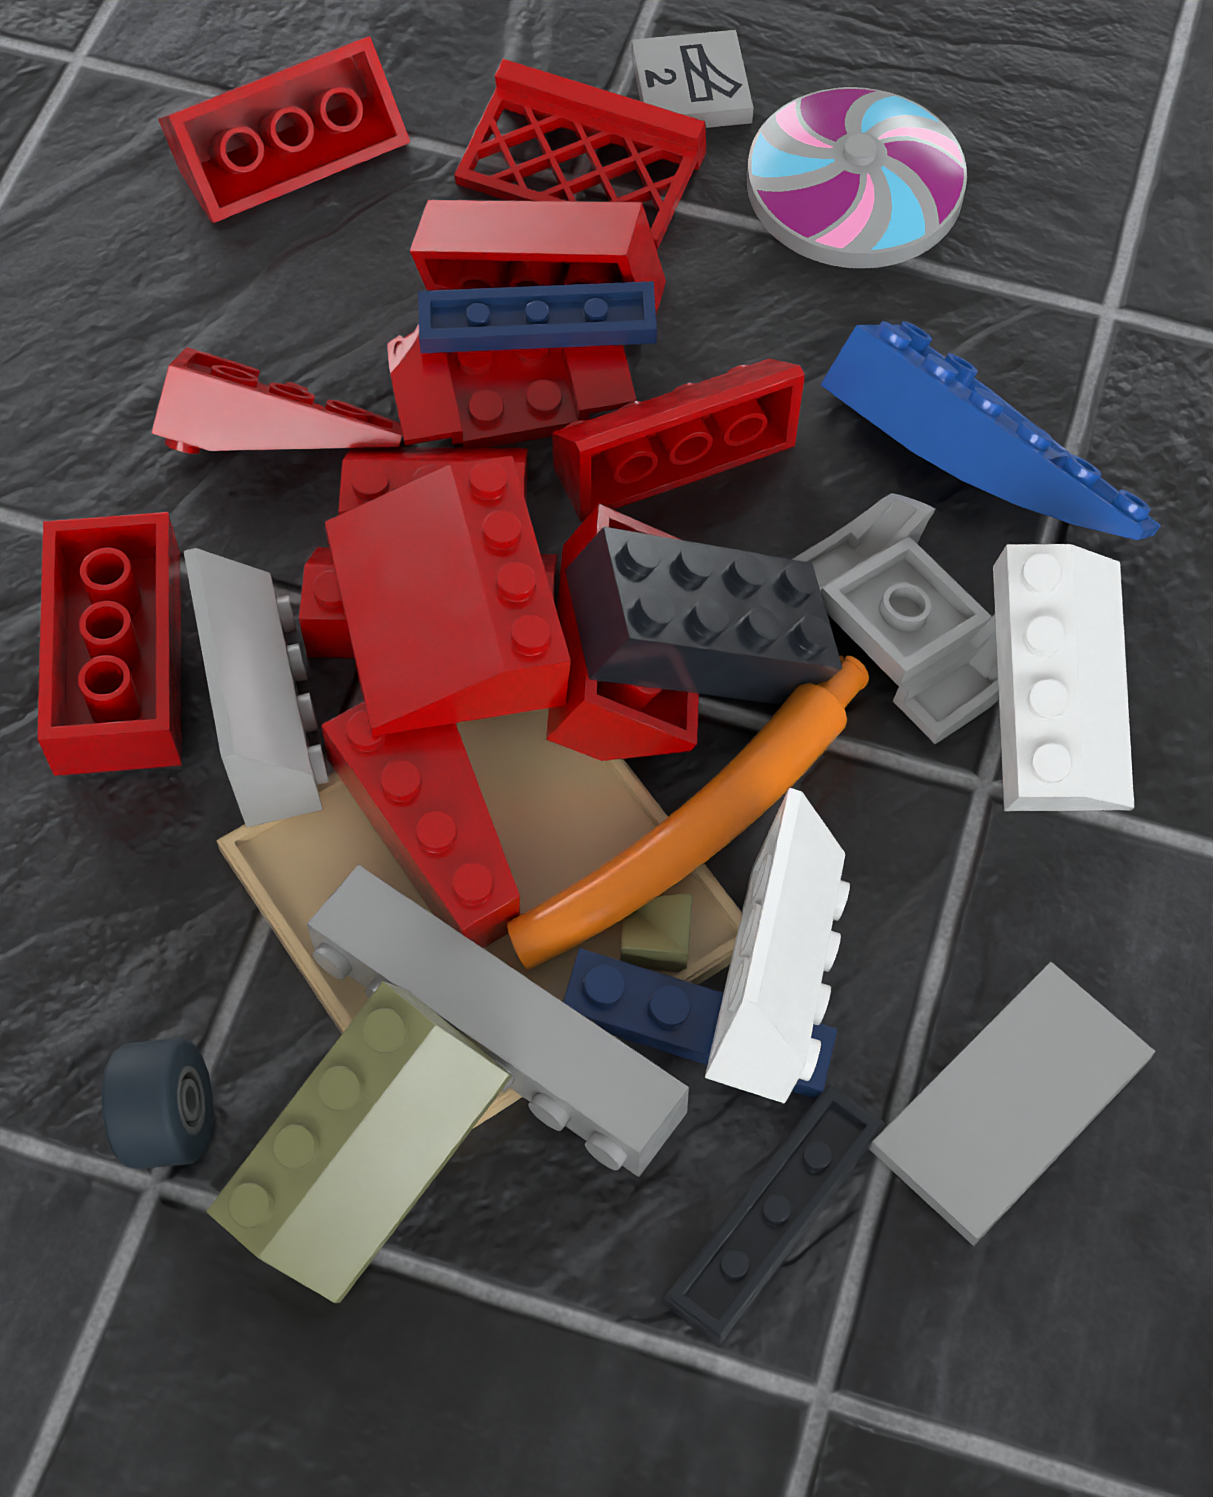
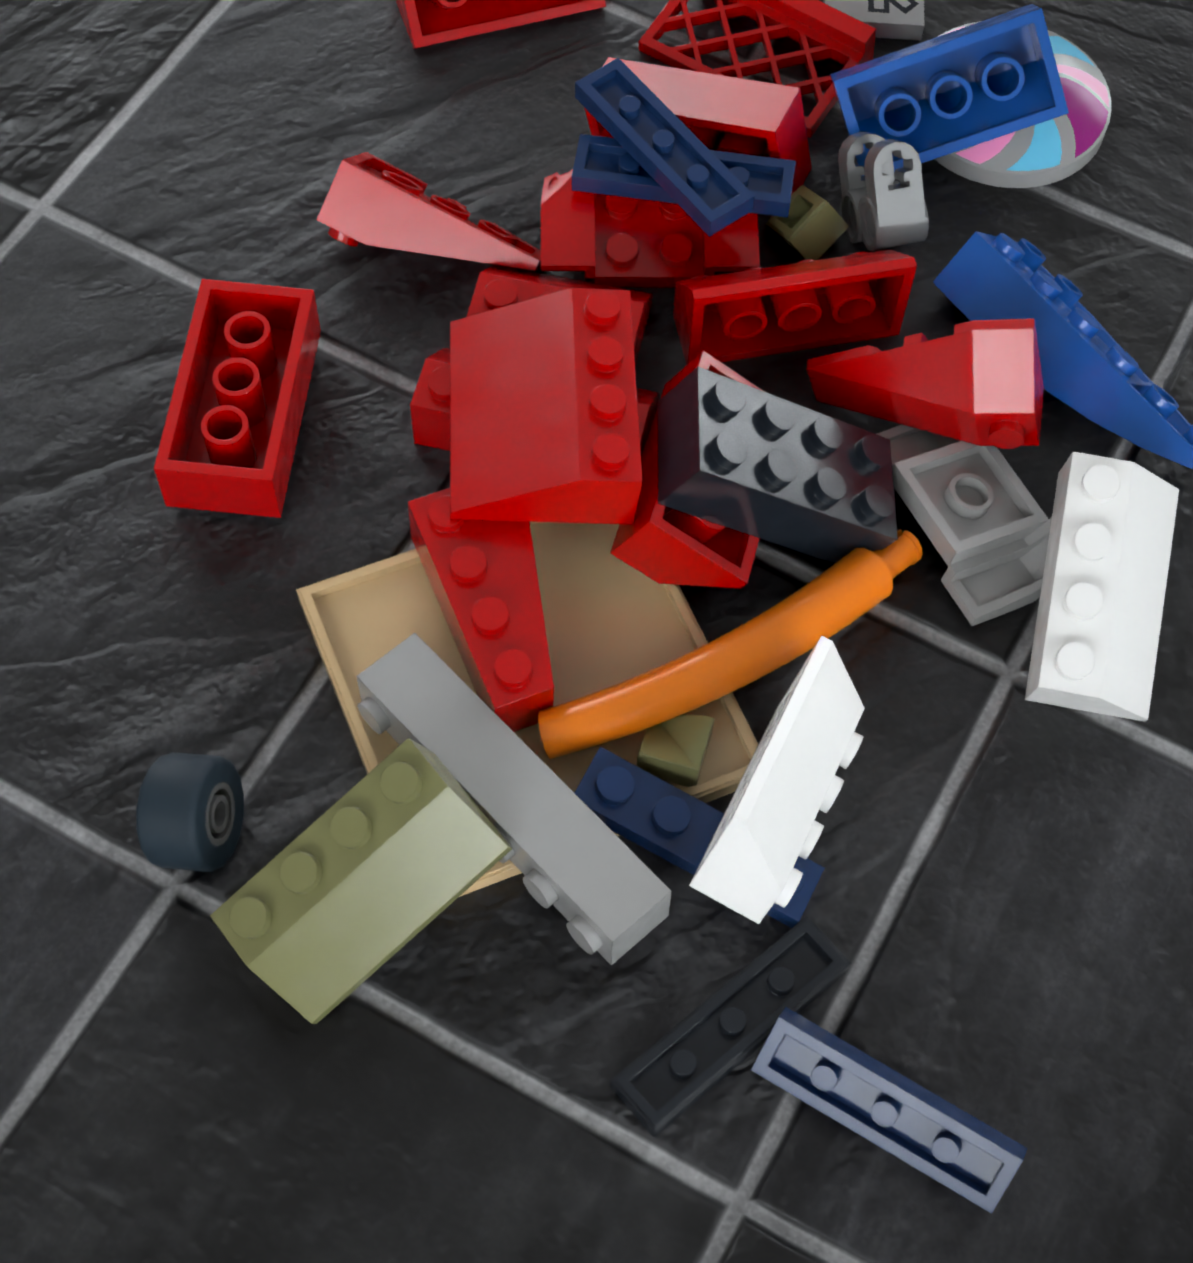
camera: 10 degrees right, 0 degrees up
(255, 690) = (357, 460): light grey slope -> none
(512, 291) = (664, 147): none -> dark blue plate
(680, 346) = (810, 224): none -> olive slope
(742, 312) = (875, 205): none -> dark grey piece
(797, 178) = (956, 87): none -> blue slope
(881, 494) = (962, 386): none -> red wedge
(956, 1268) = (889, 1110): none -> plate
(1011, 1102) = (975, 967): light grey tile -> none

